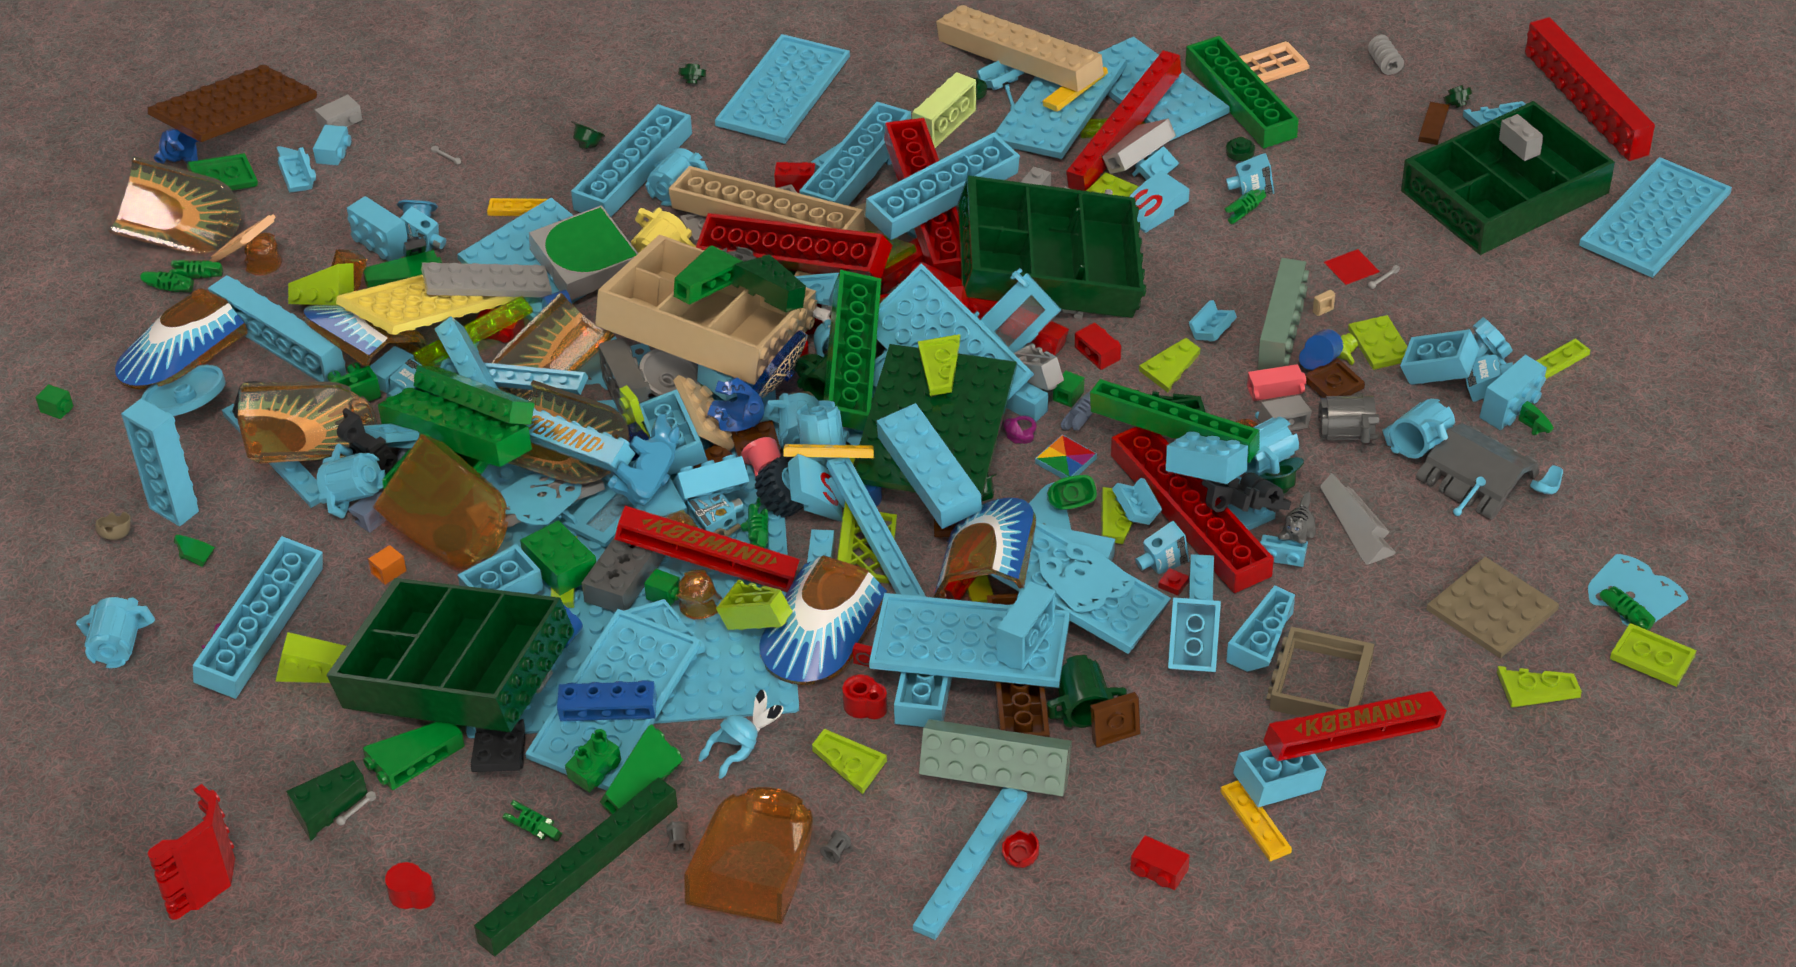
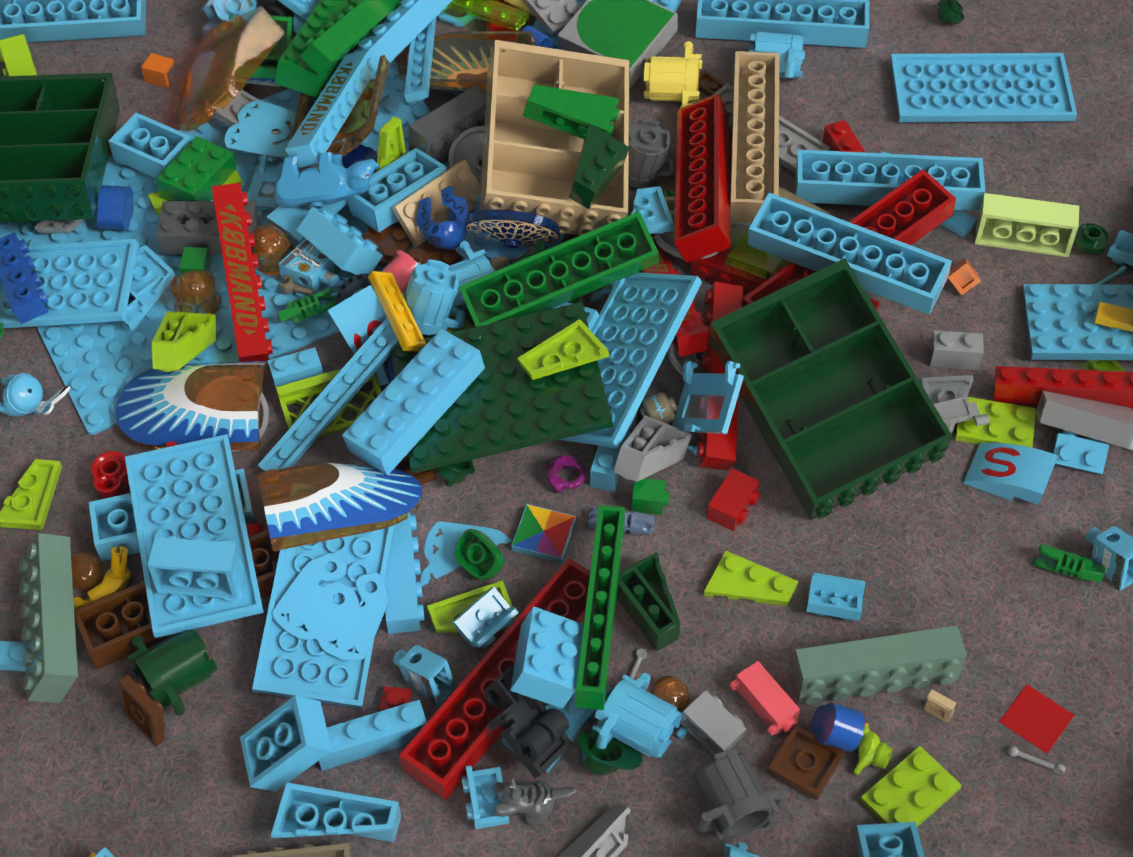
camera: 65 degrees right, 10 degrees up
(965, 714) = (115, 579): none -> yellow arm

